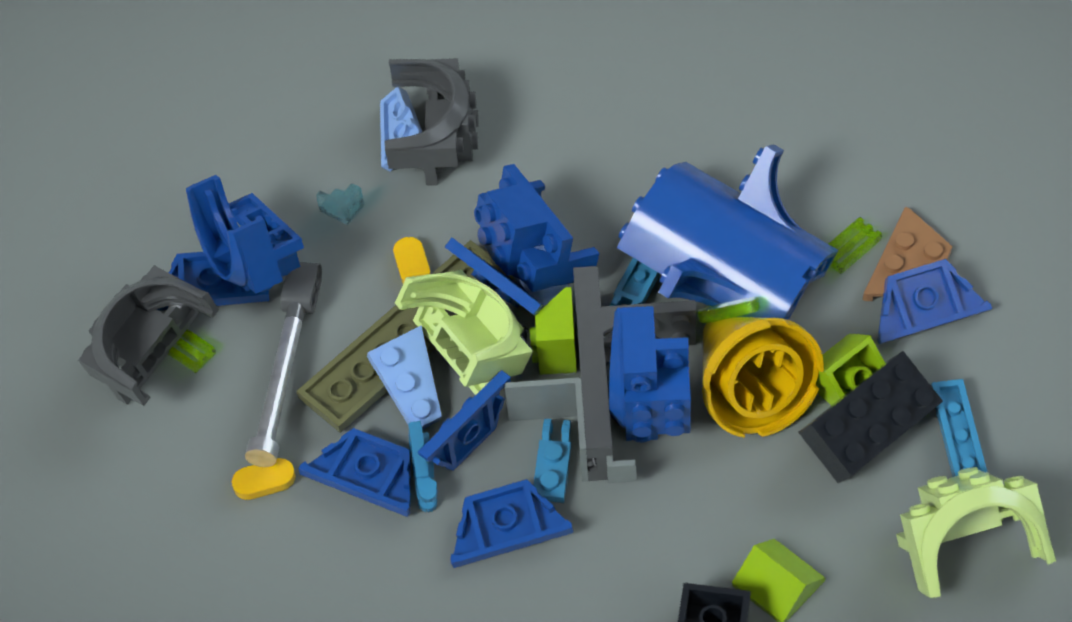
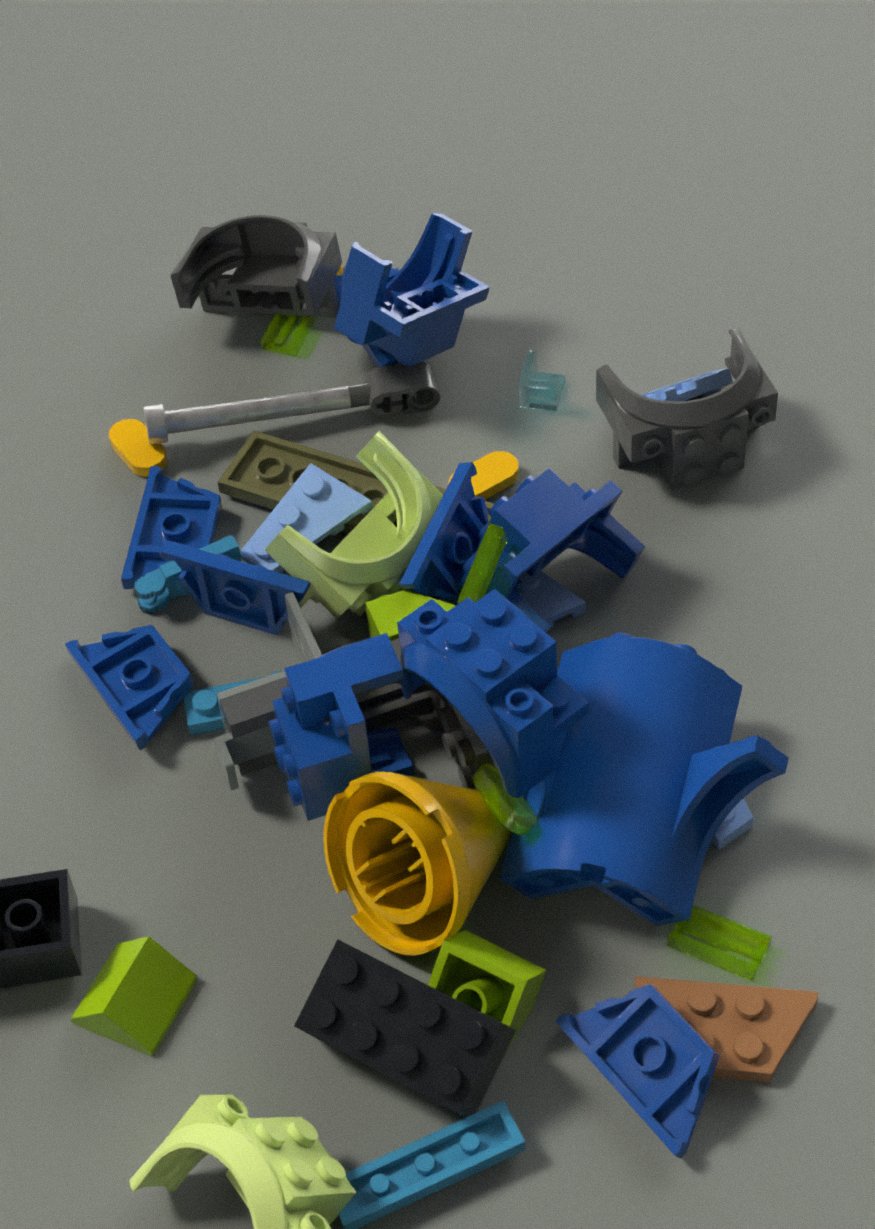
camera: 70 degrees right, 5 degrees down
(552, 257) = (484, 564): none -> clear neon green tile
(669, 256) = (498, 677): none -> blue piece

